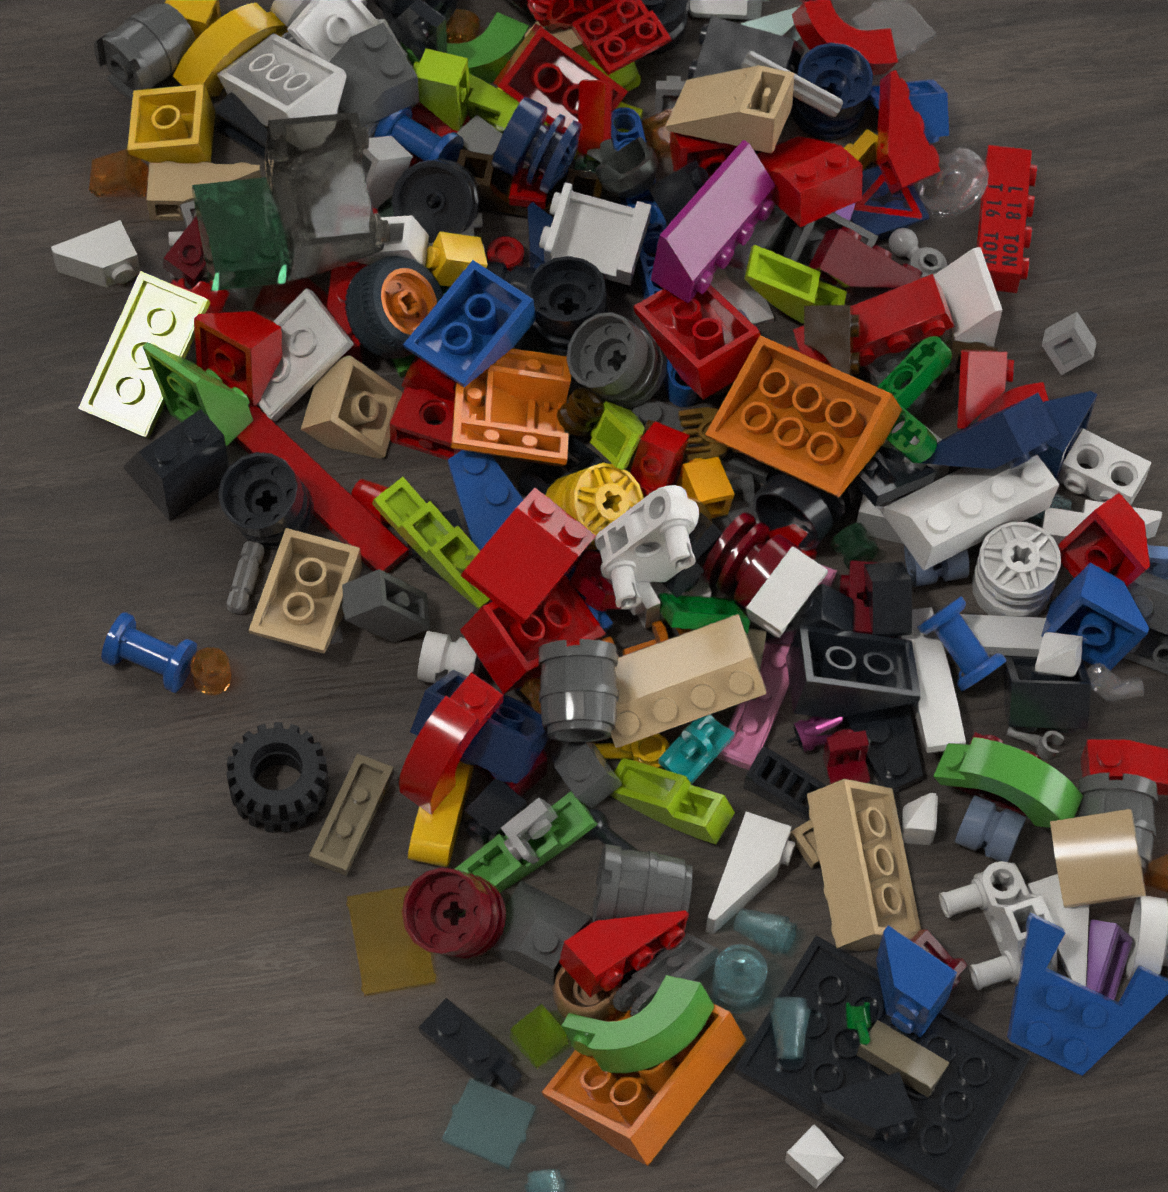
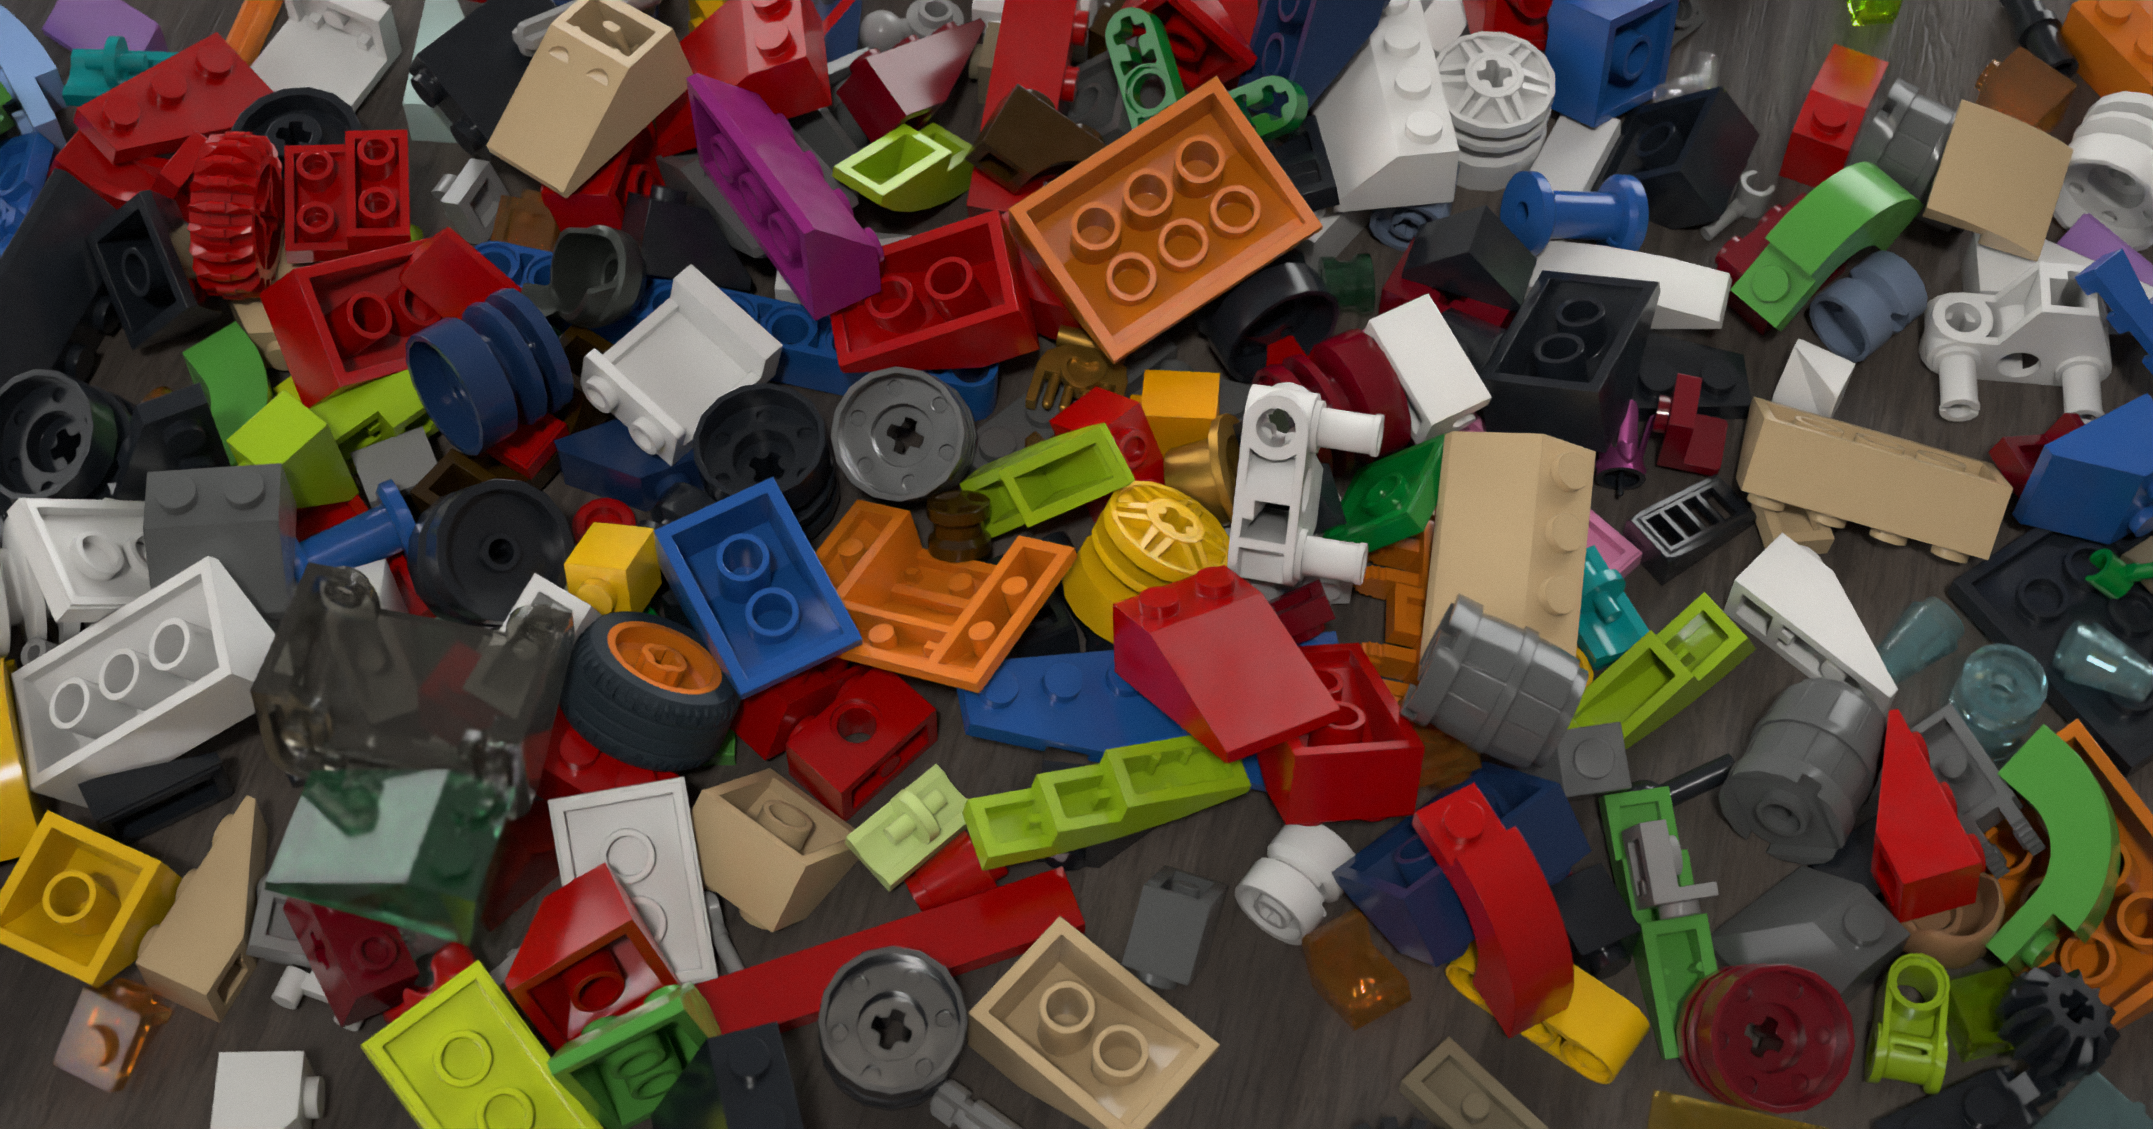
camera: 65 degrees left, 5 degrees down
(296, 409) = (720, 935): none -> light grey hand
(388, 463) = (909, 828): none -> yellowish green hips
(402, 710) = (1353, 971): none -> clear orange bracket
(507, 996) = (1910, 1037): none -> lime piece
(543, 1049) = (2056, 1023): none -> black gear
(1059, 654) = (1643, 110): white slope -> none

